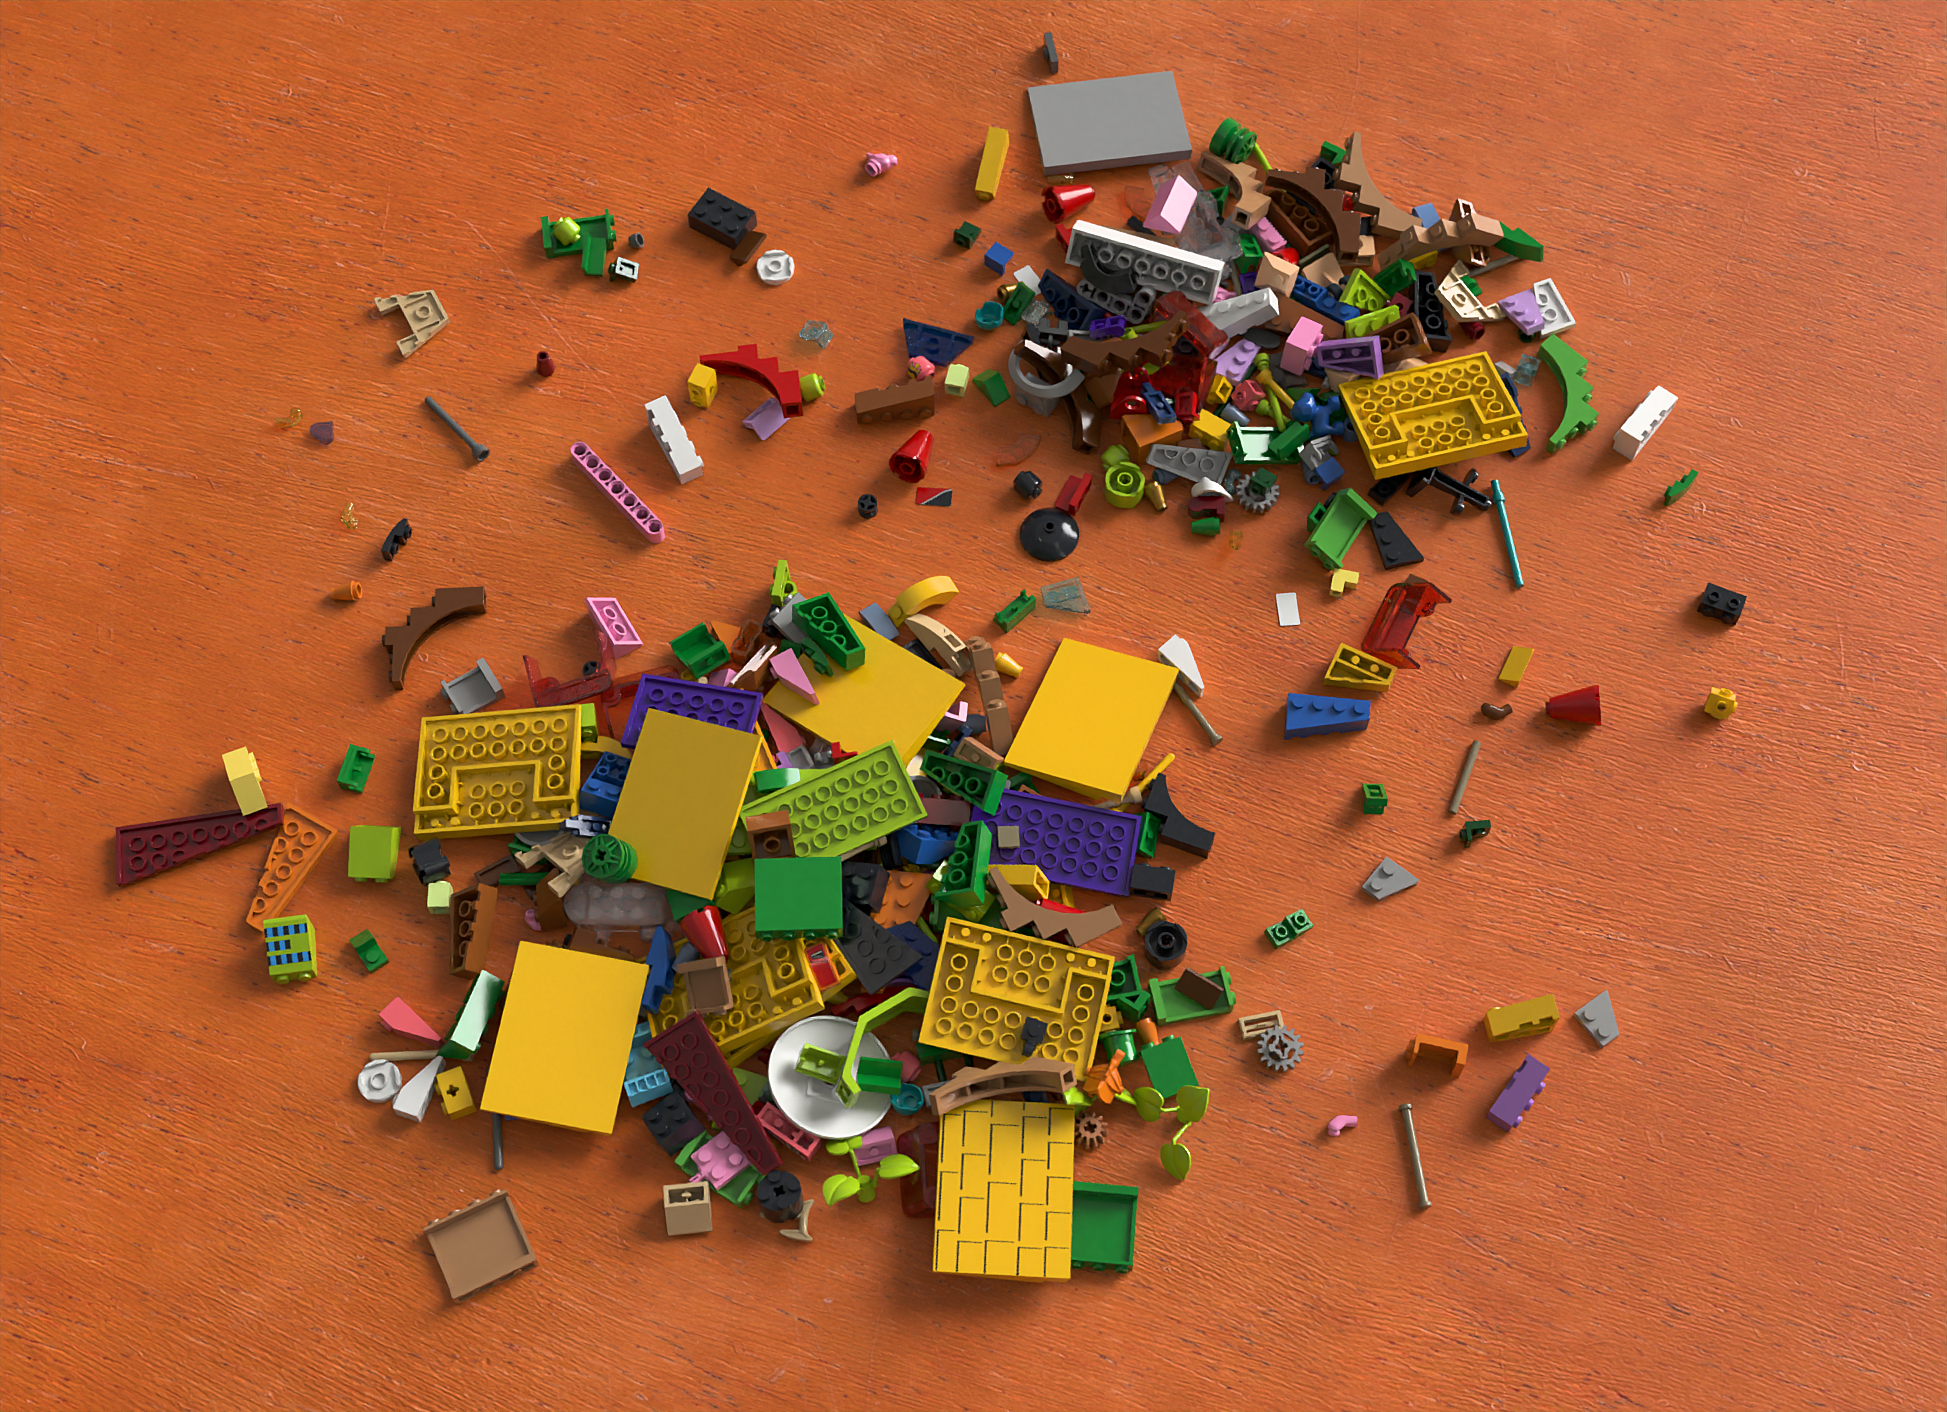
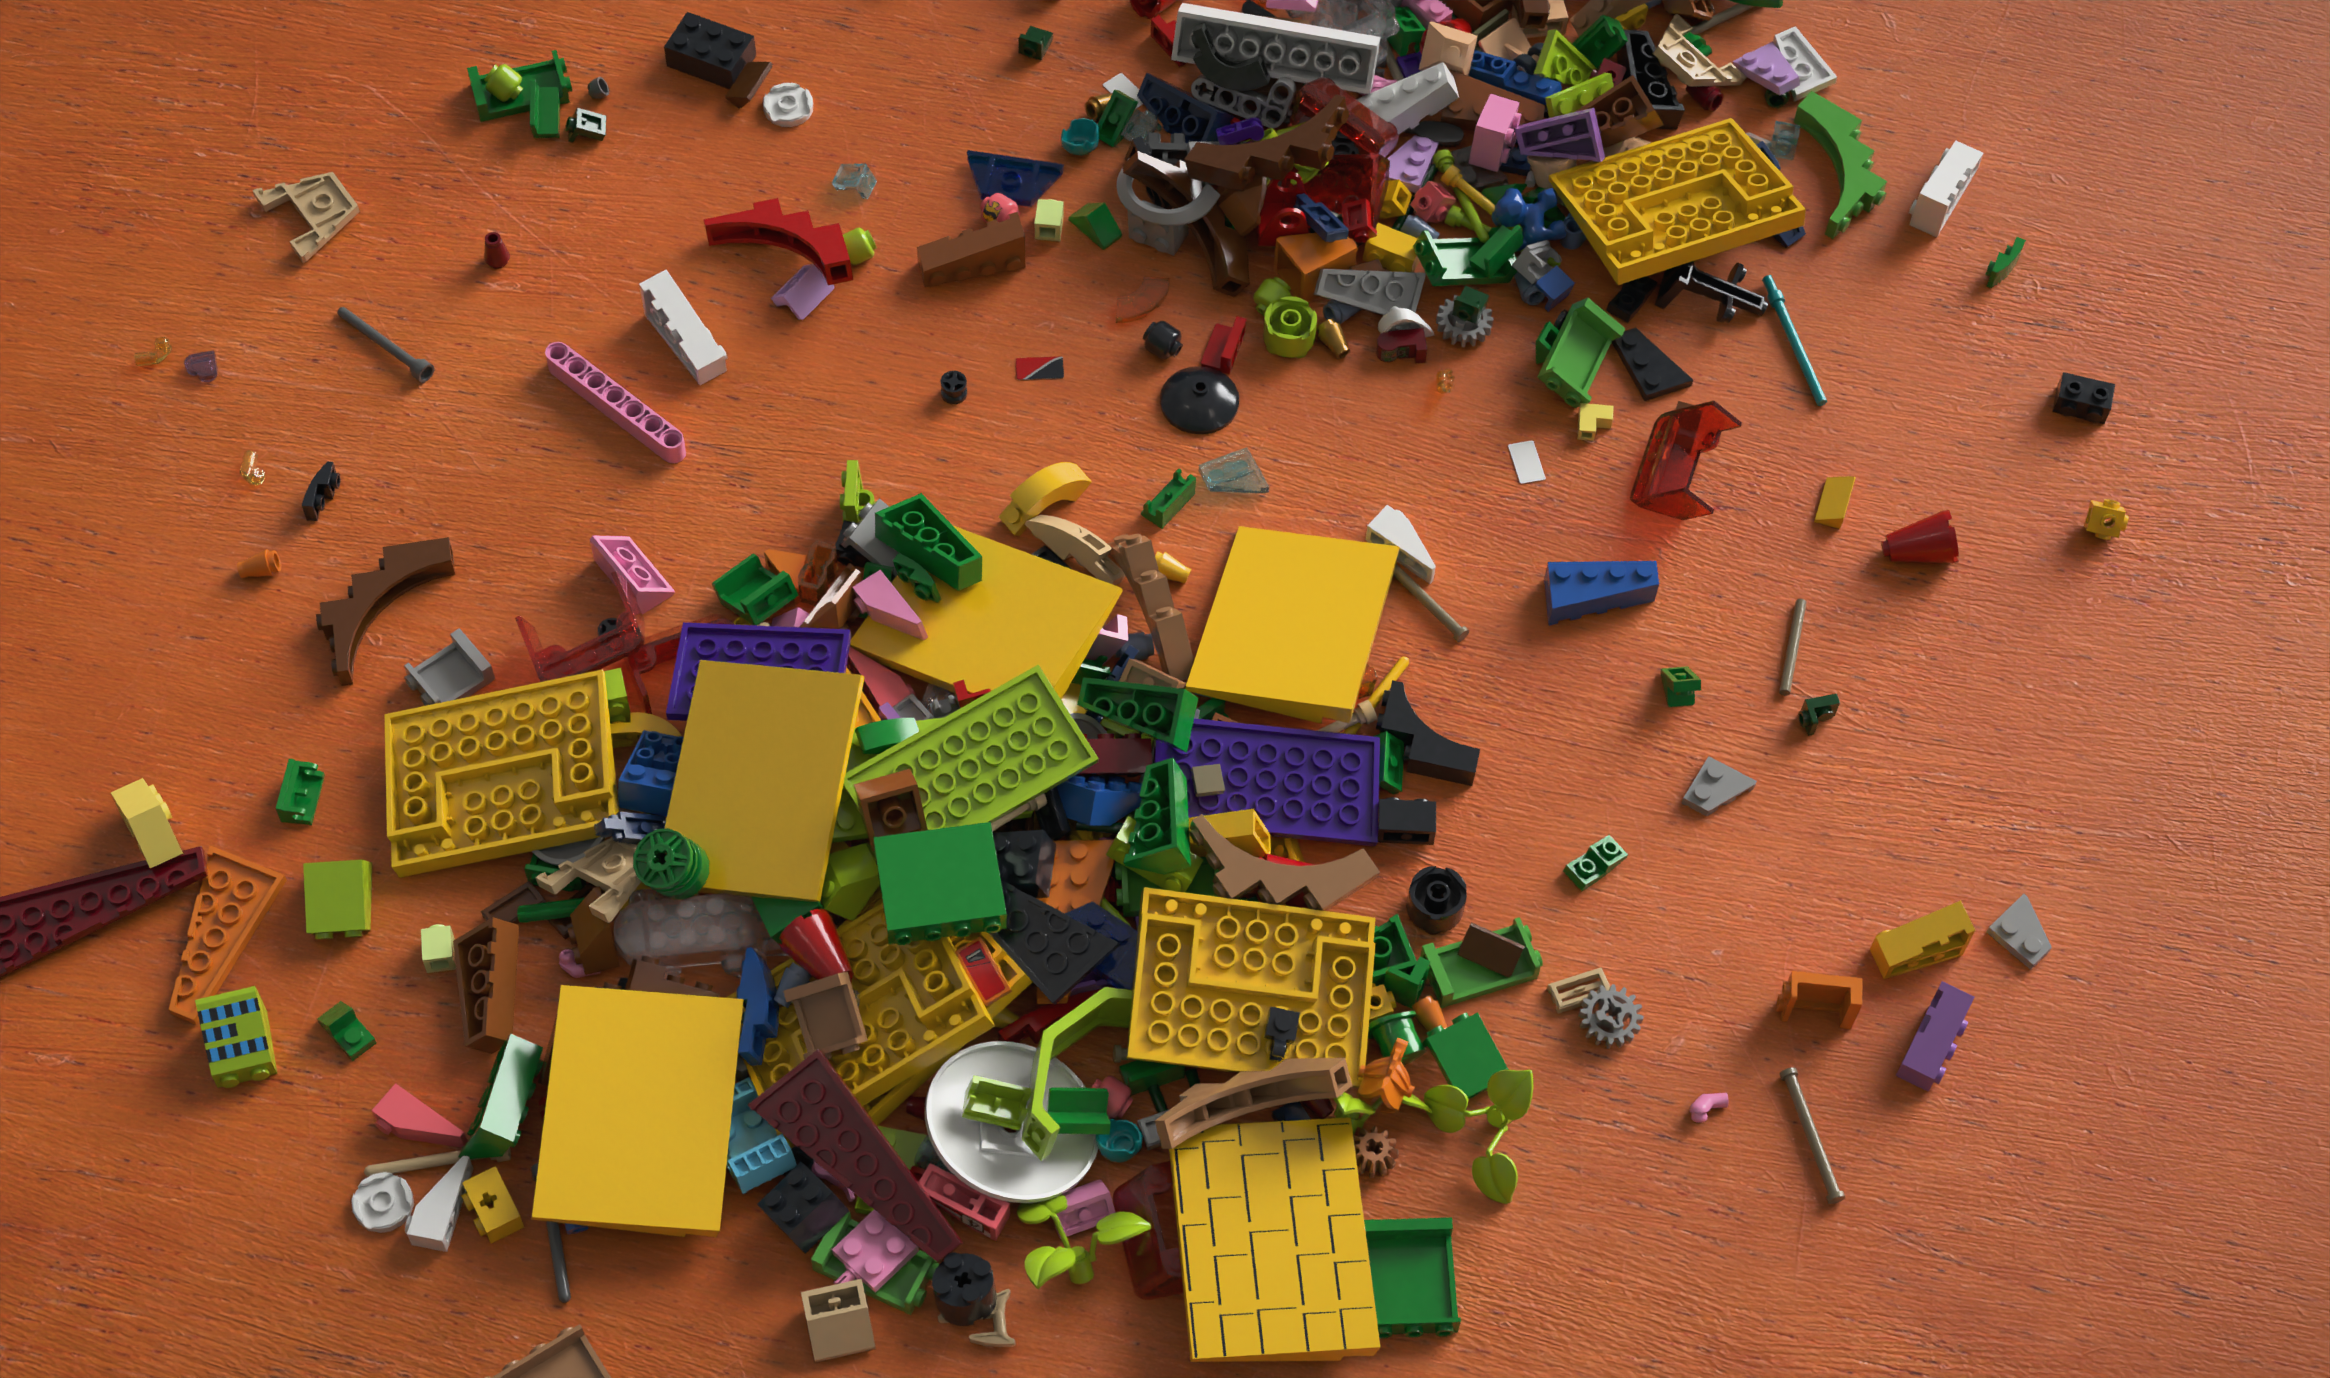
camera: 10 degrees left, 5 degrees down
(429, 862) = (418, 901): black brick -> none
(702, 385) = (713, 256): yellow brick -> none
(878, 621) = (989, 526): sand blue slope -> none
(913, 457) = (1005, 320): red cone -> none
(997, 258) = (1080, 65): blue panel -> none
(1151, 917) = (1410, 869): pearl gold cone -> none
(1207, 526) = (1405, 369): green cone -> none
(1228, 481) = (1425, 307): clear light blue arm -> none
(1359, 671) = (1634, 526): yellow wedge -> none
(1494, 712) = (1818, 561): reddish brown arm -> none

